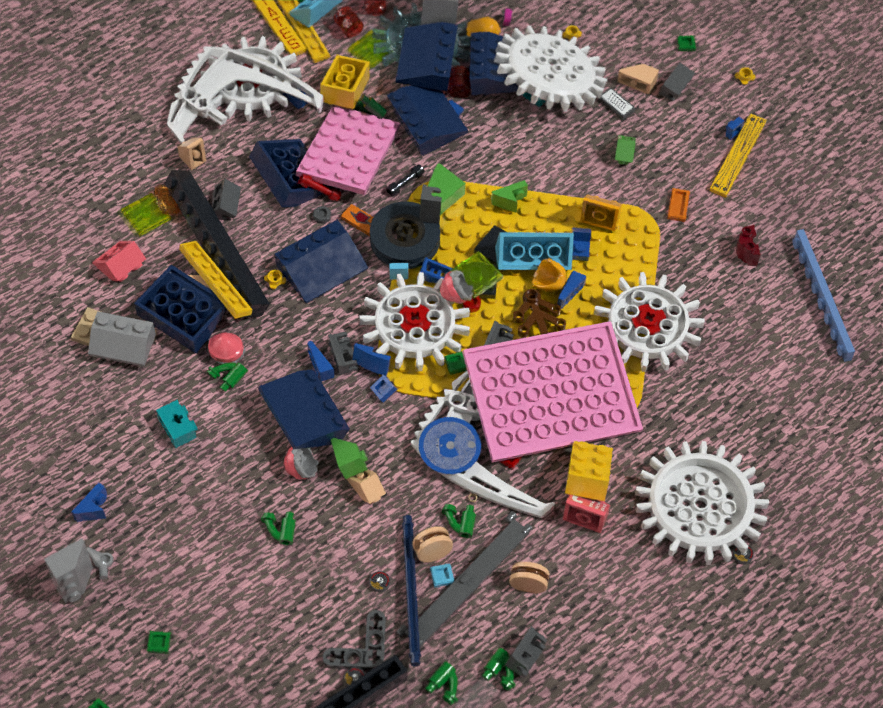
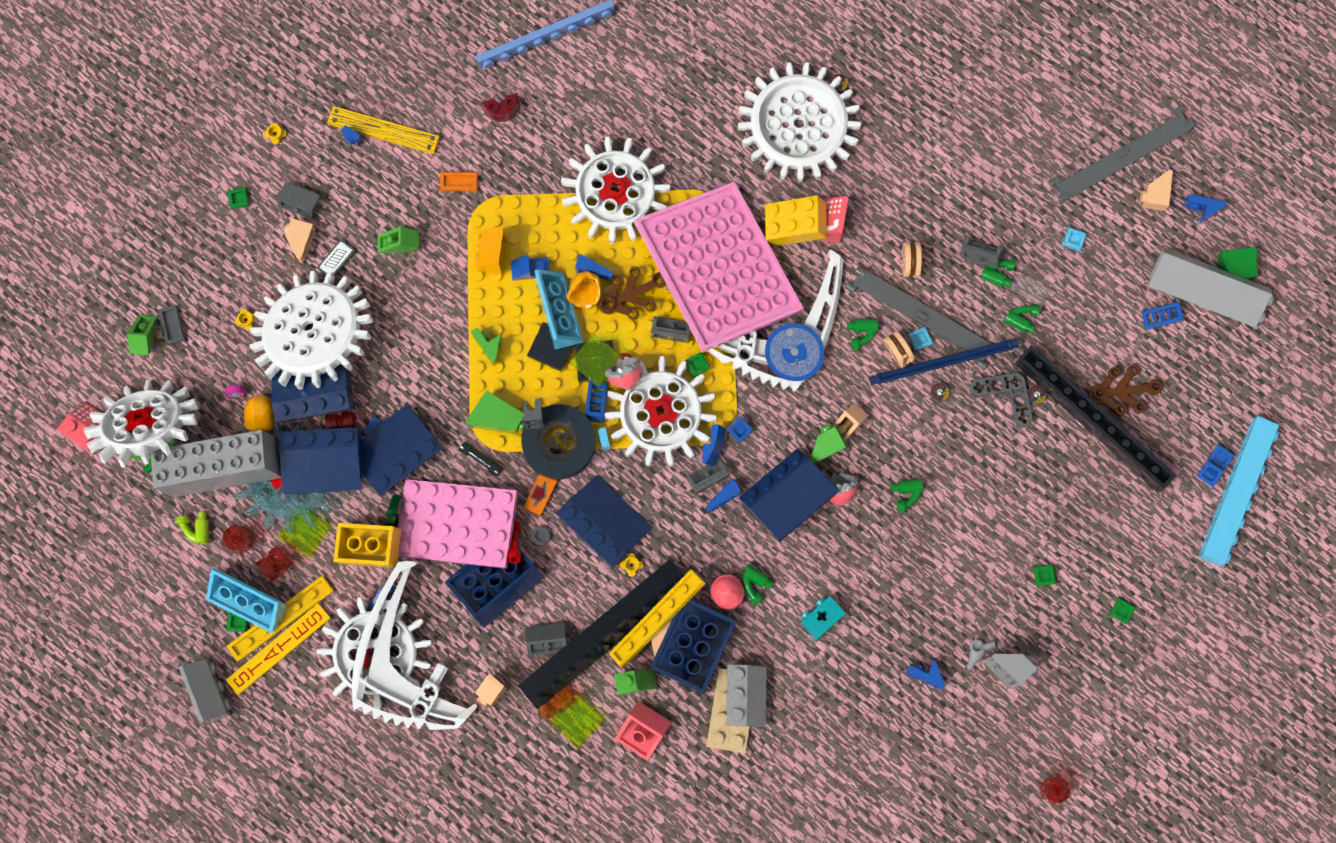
camera: 100 degrees left, 20 degrees up
(162, 249) = (635, 682): none -> bright green slope

